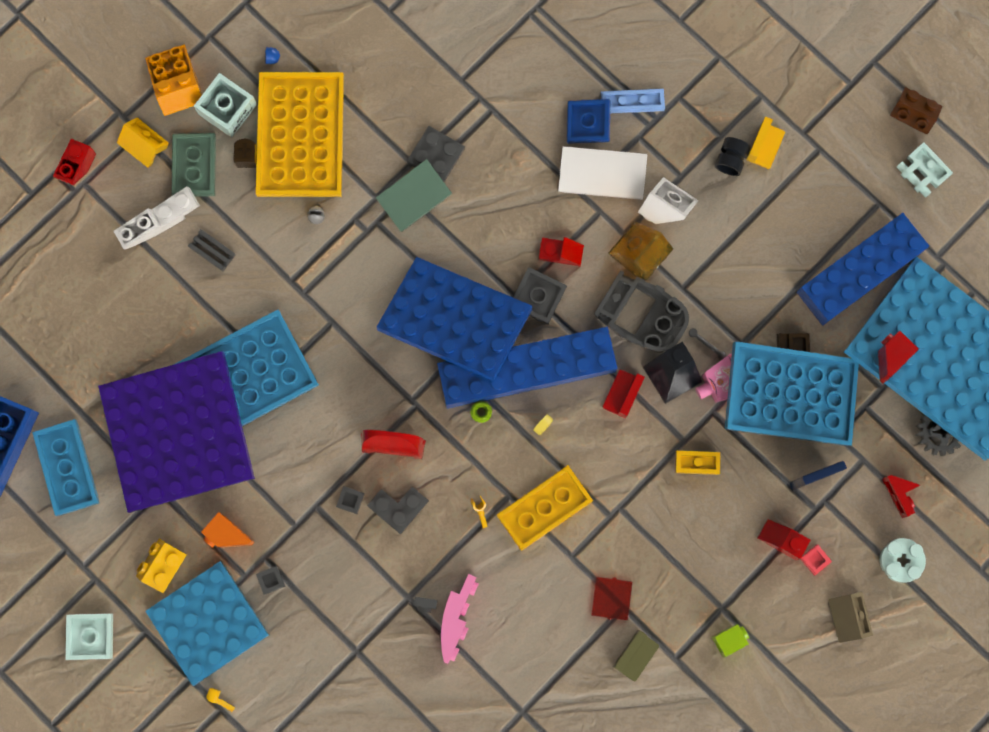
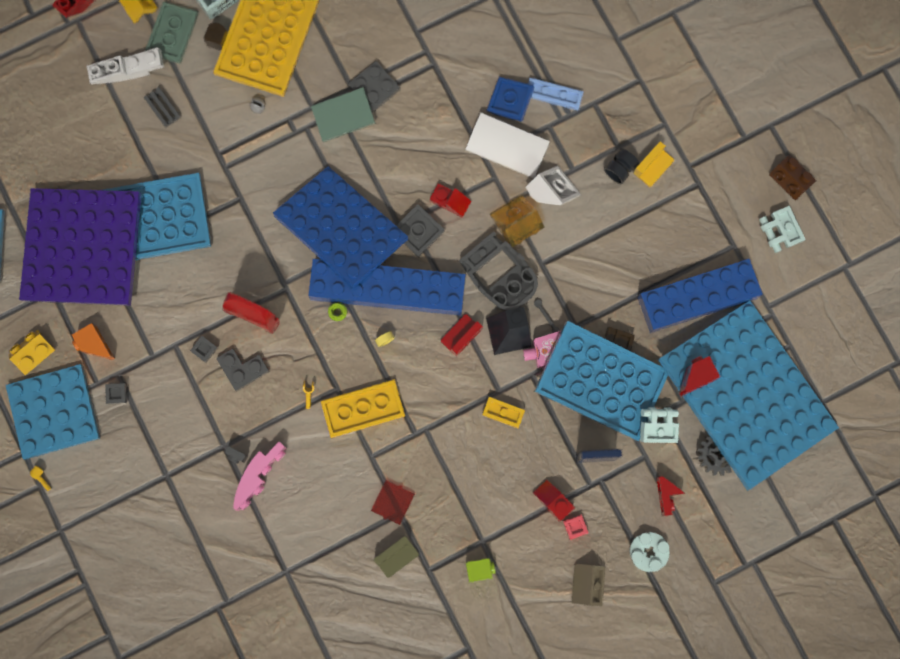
camera: 20 degrees right, 0 degrees up
(871, 428) = (659, 431): none -> light aqua plate

